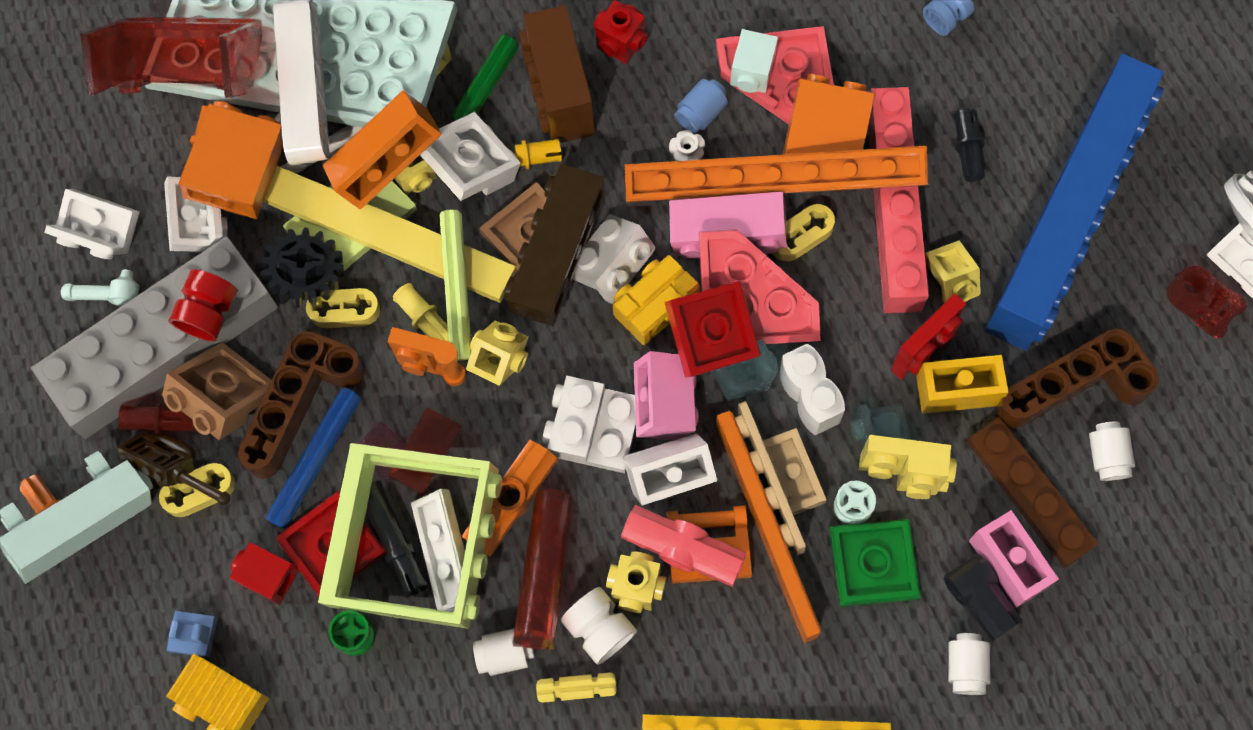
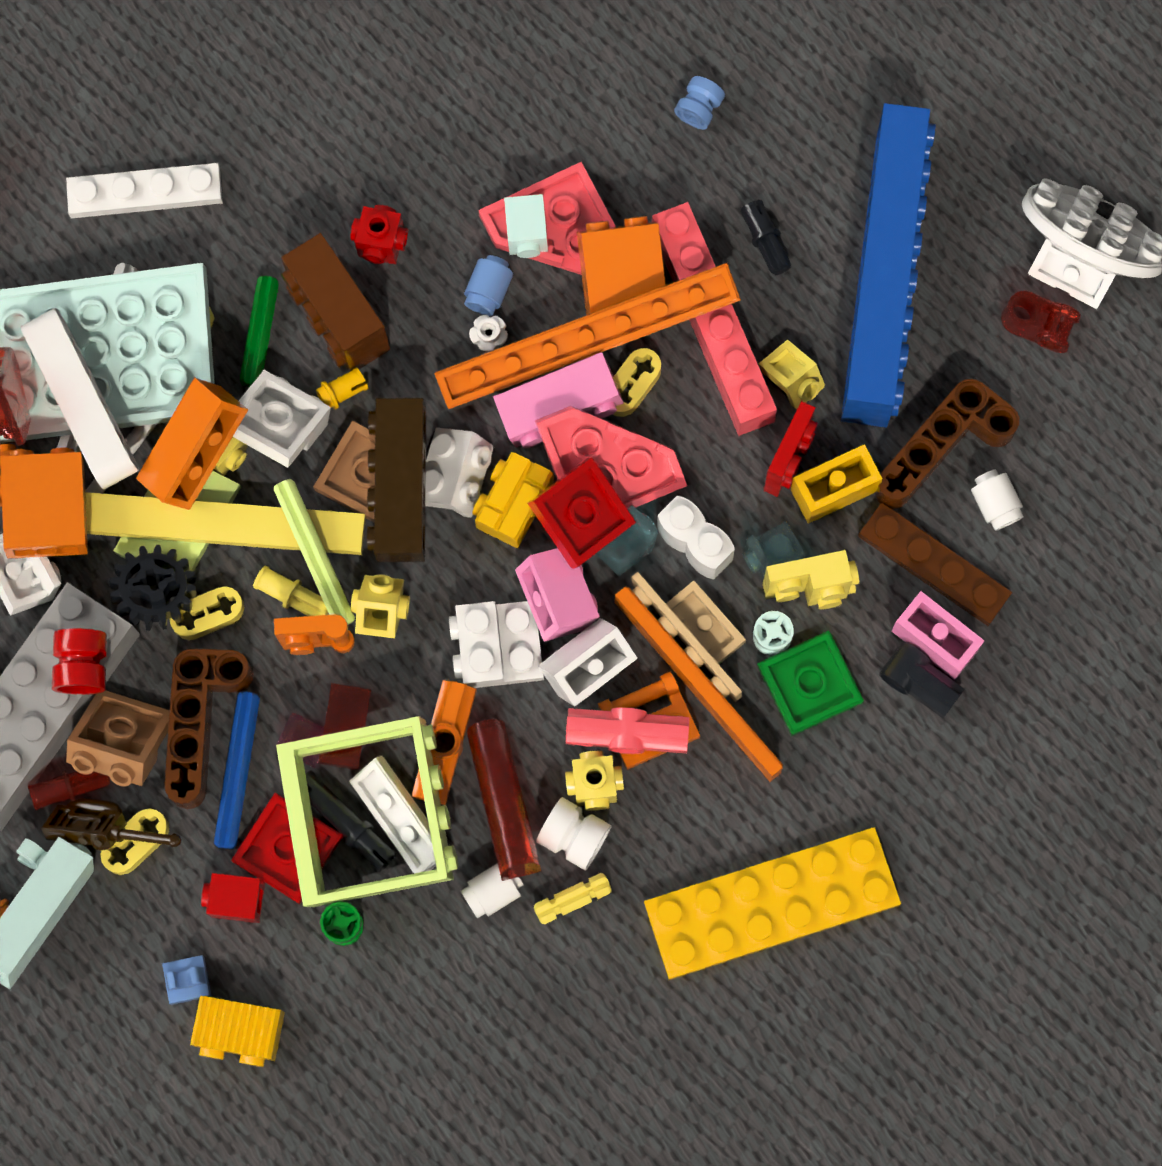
camera: 20 degrees left, 5 degrees up
(969, 664) = (928, 747): white brick -> none

